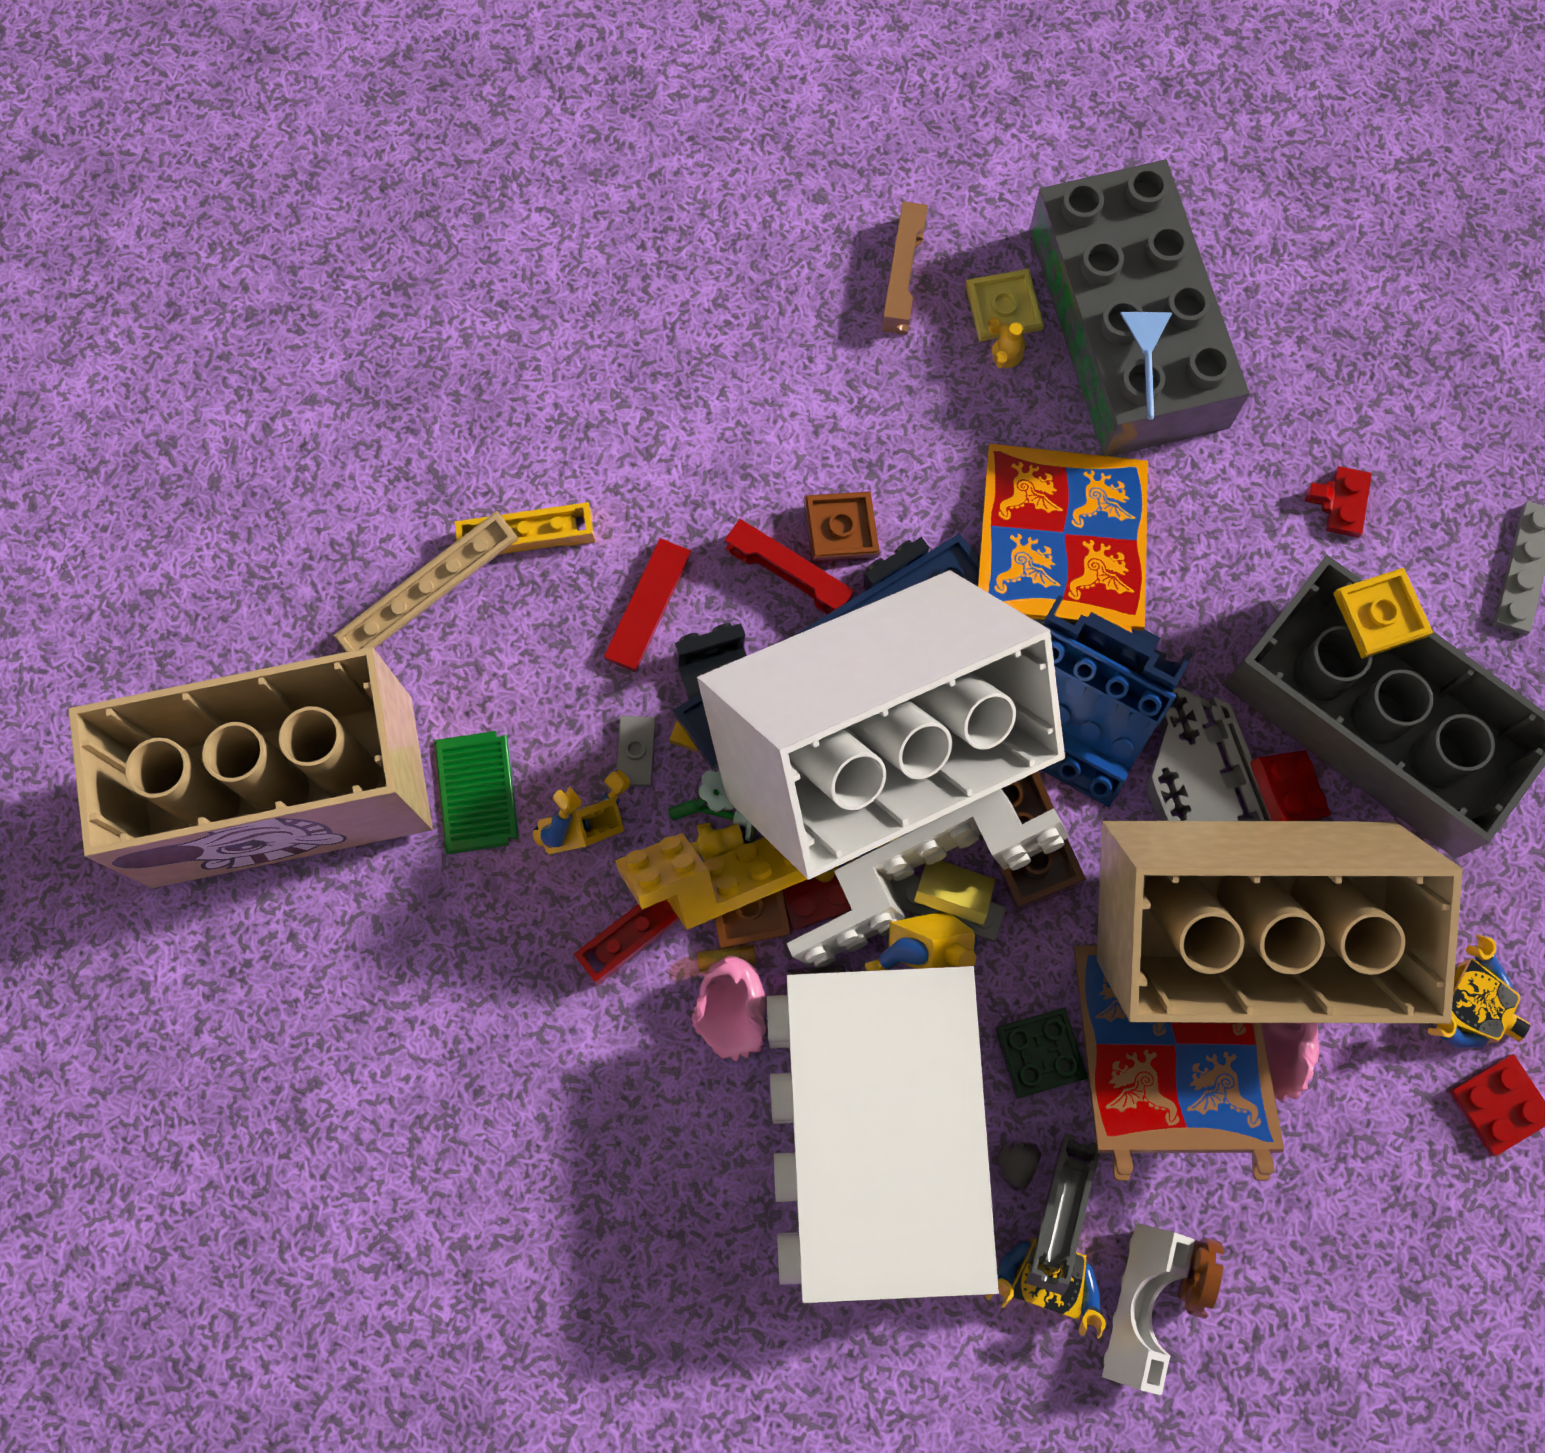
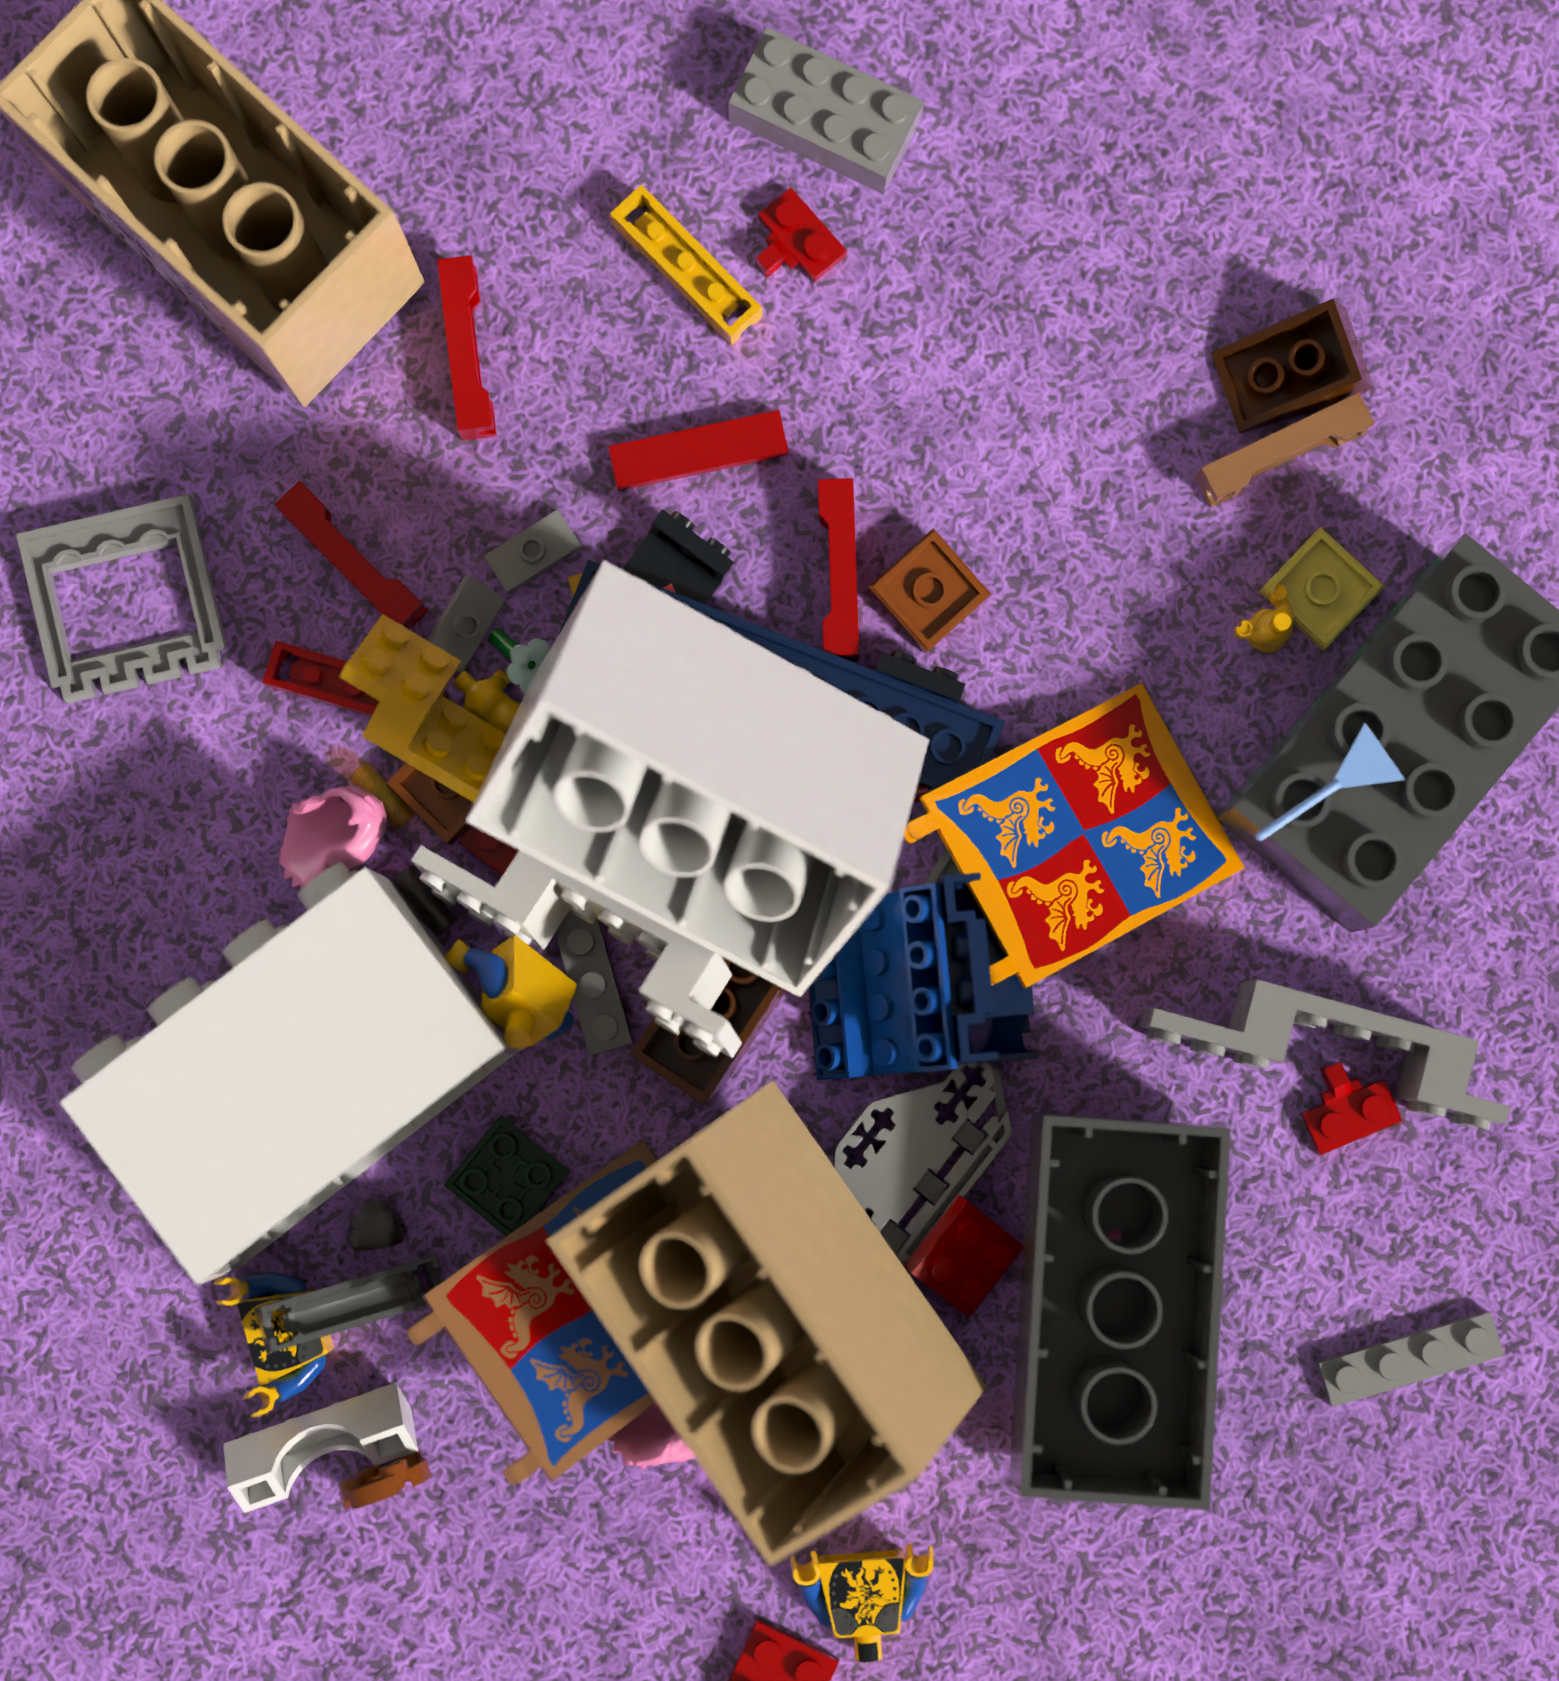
camera: 50 degrees right, 10 degrees up
(419, 1021) = (106, 539): none -> light grey hinge
(428, 585) = (551, 209): tan tile -> none
(476, 792) = (378, 421): green window -> none
(495, 384) = (825, 110): none -> light grey brick
(507, 877) = (314, 522): none -> red piece
(508, 719) = (459, 298): none -> red piece
(559, 456) = (797, 239): none -> red hinge
(583, 825) = (411, 555): torso -> none
(647, 818) = (466, 620): none -> light grey plate
(857, 230) = (1292, 367): none -> reddish brown slope
(955, 891) = (605, 979): light yellow tile -> none
(1261, 509) = (1261, 1024): none -> light grey bracket
(1383, 612) = (1202, 1229): yellow tile -> none

